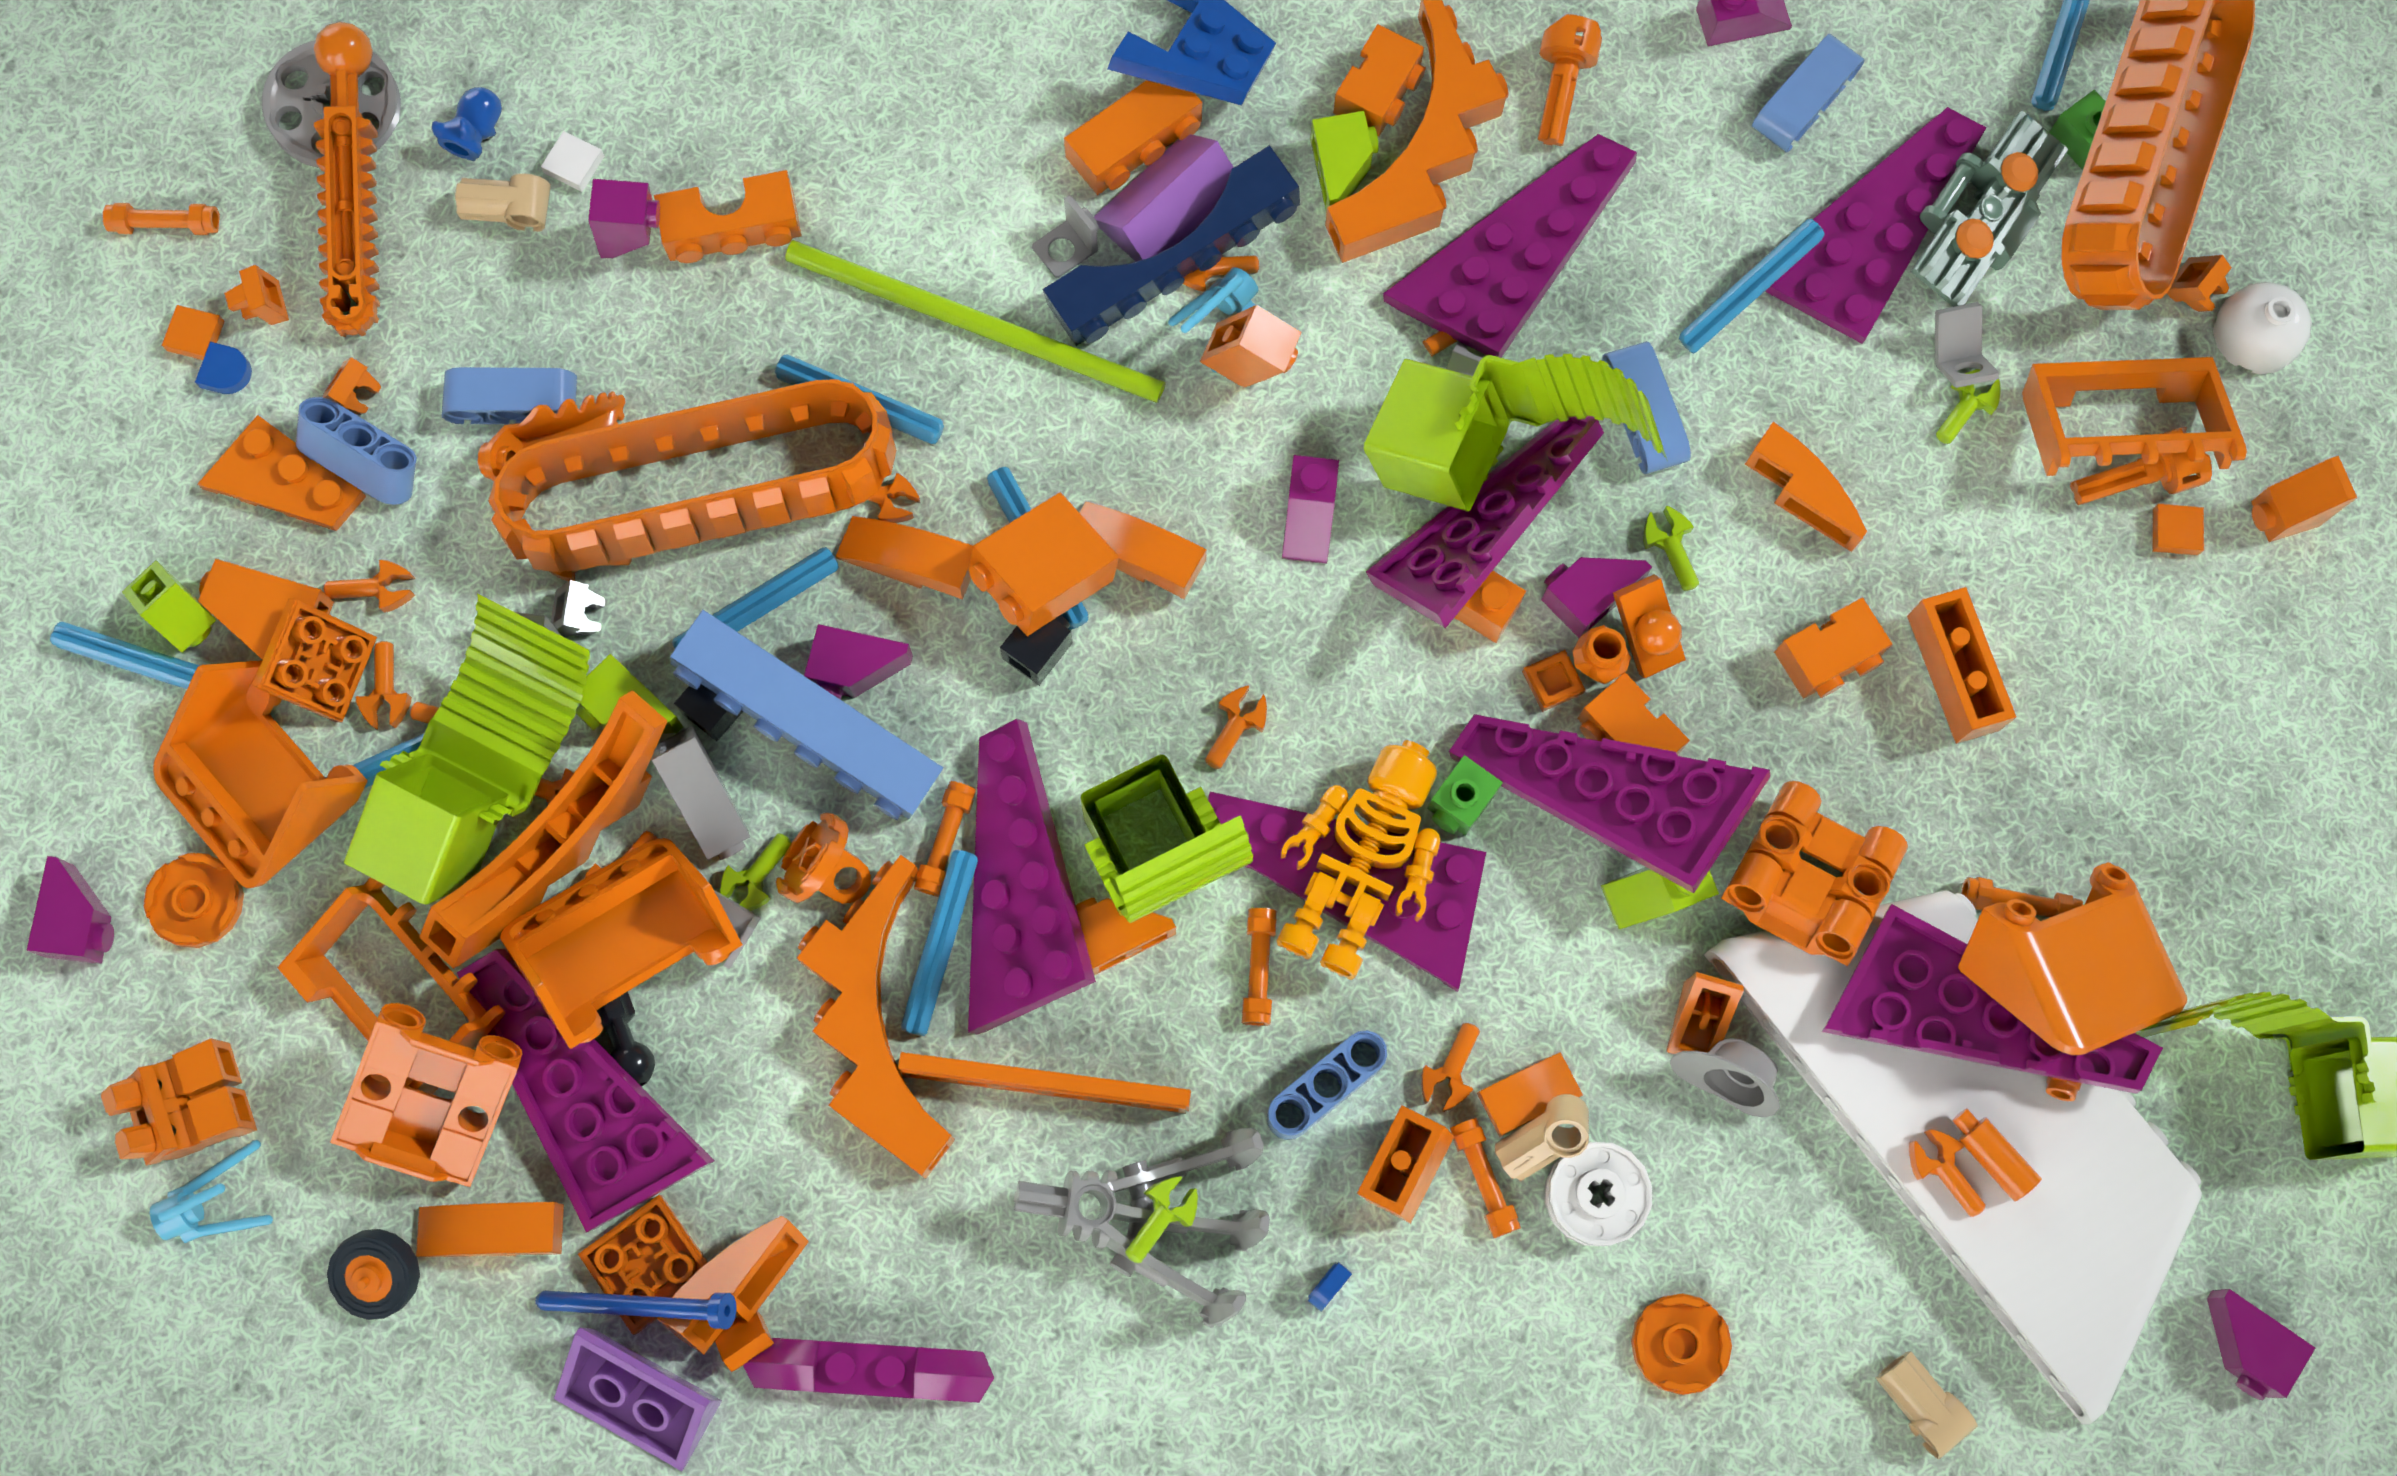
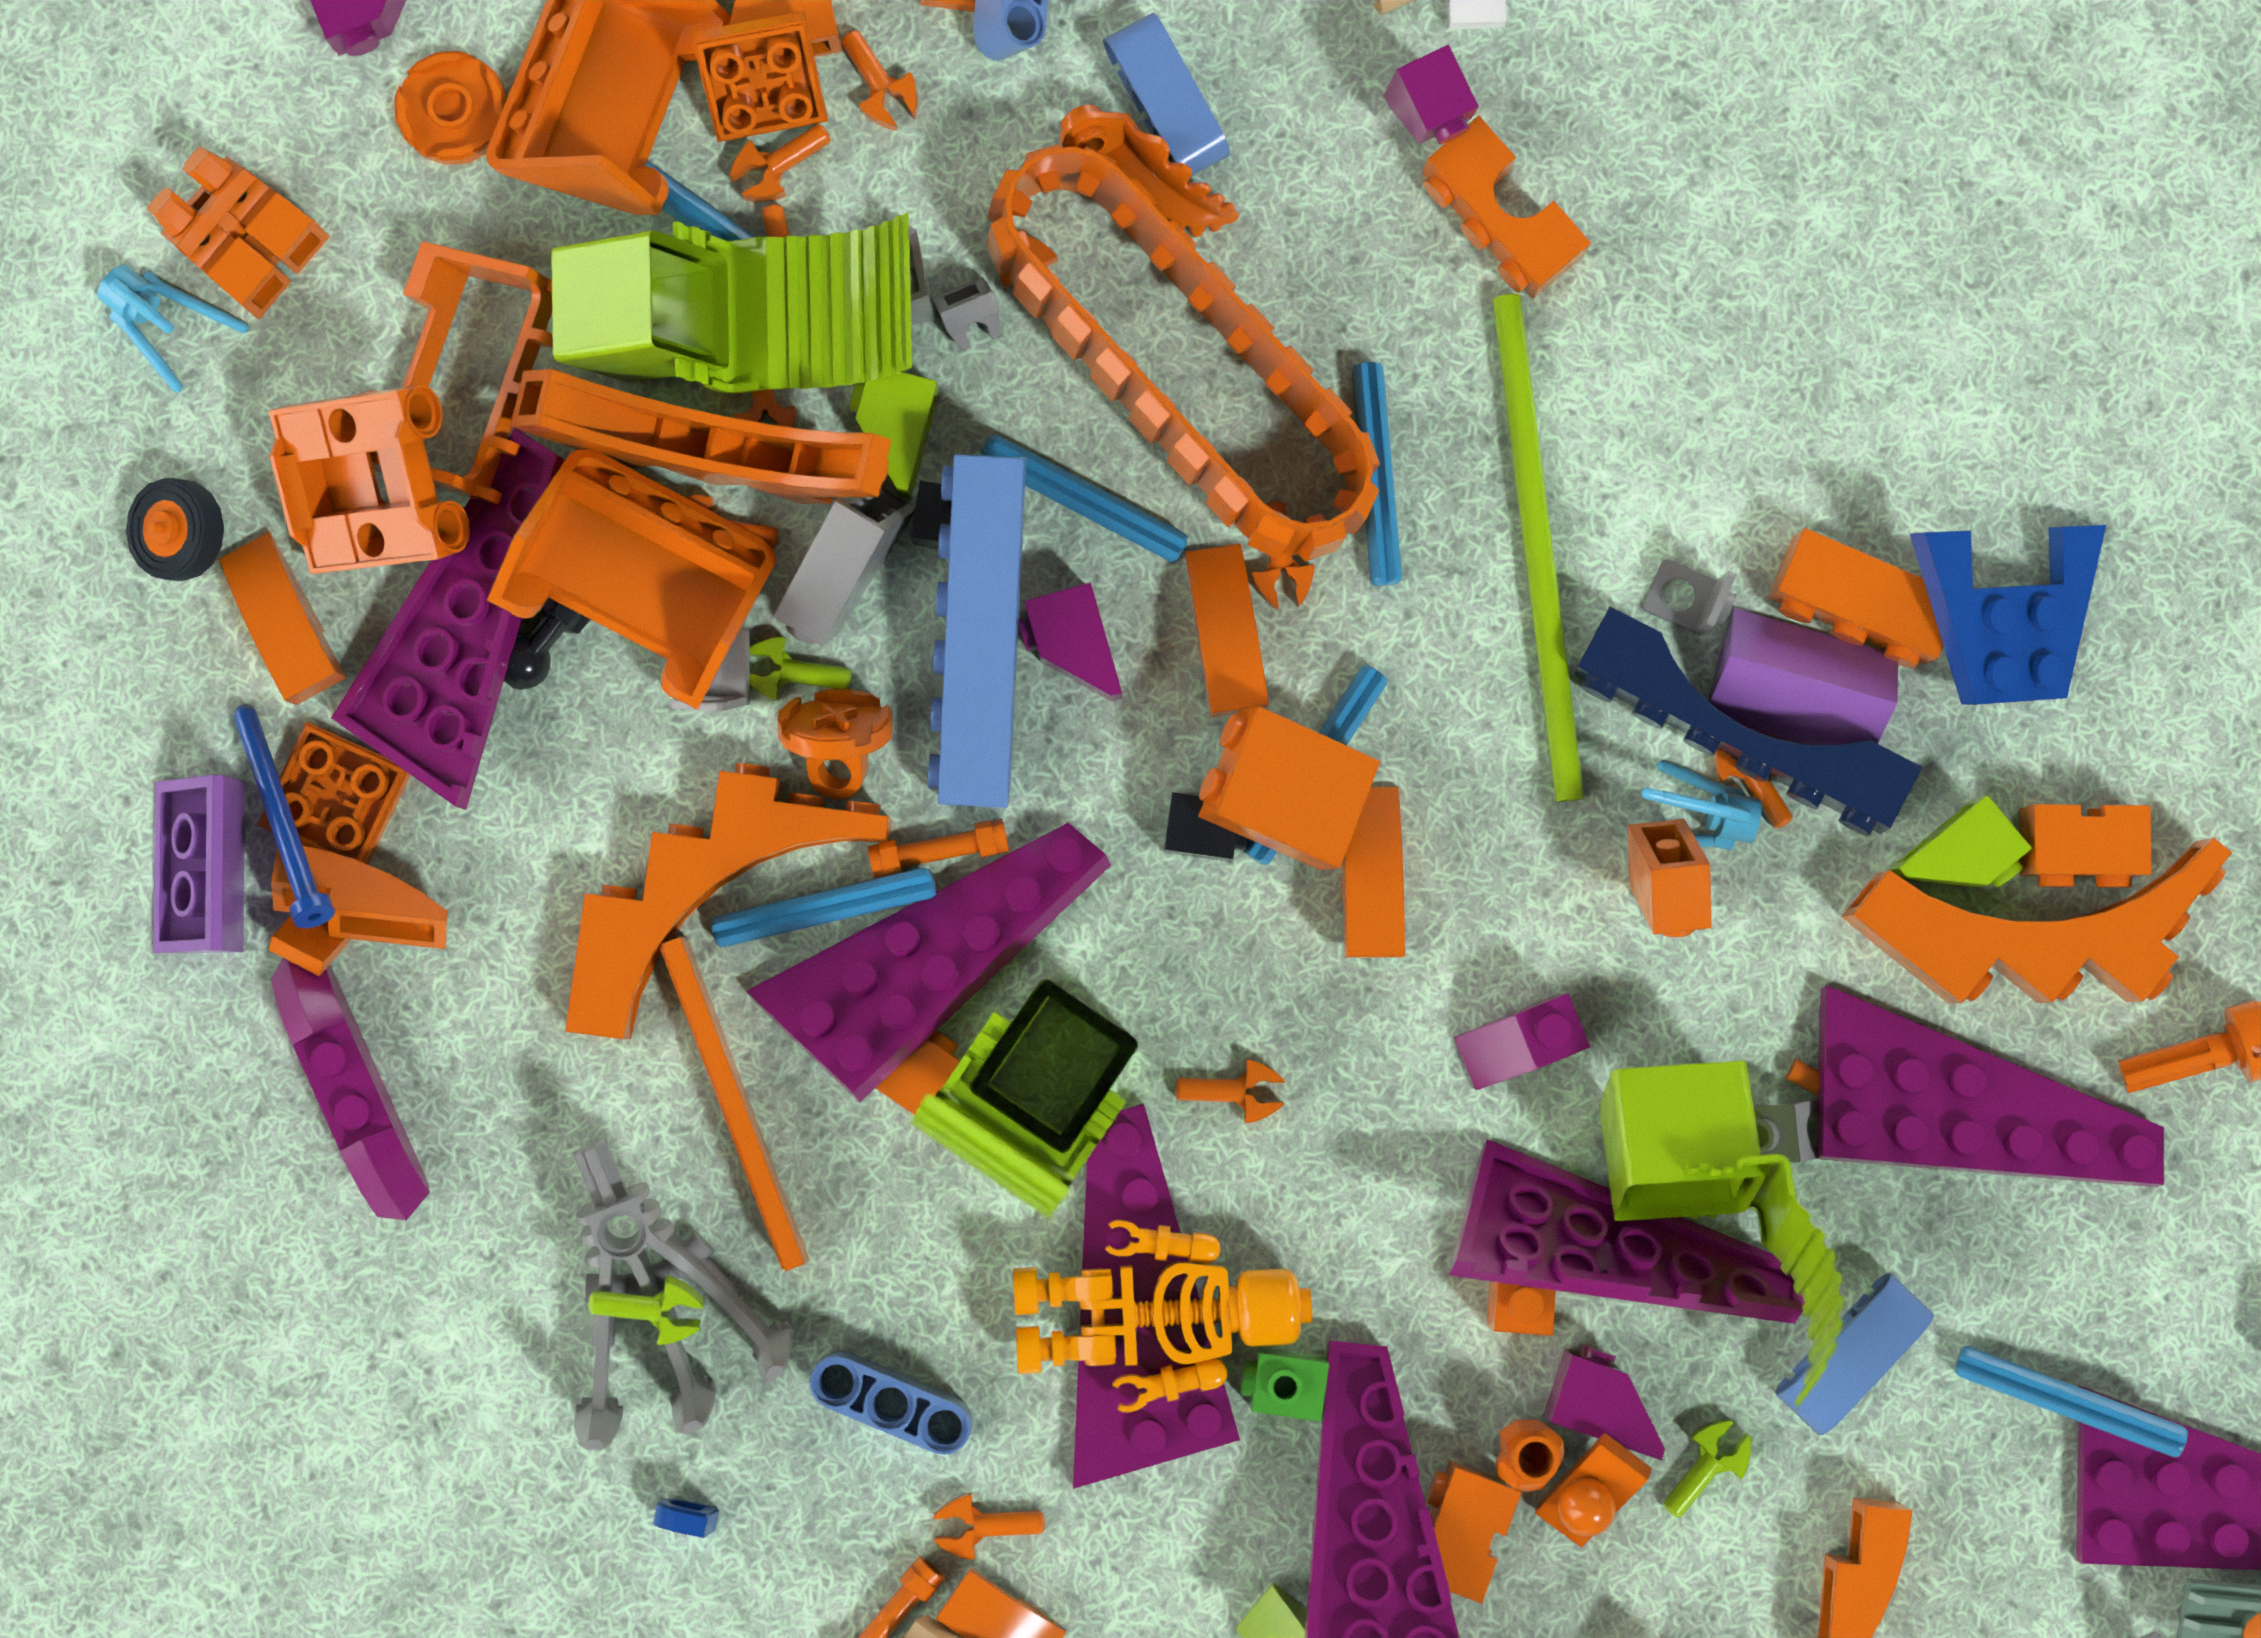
camera: 60 degrees right, 10 degrees up
(1261, 926) = (937, 1281): orange bar -> none
(1405, 1164) = (849, 1533): orange brick -> none
(1553, 680) = (1477, 1412): orange tile -> none

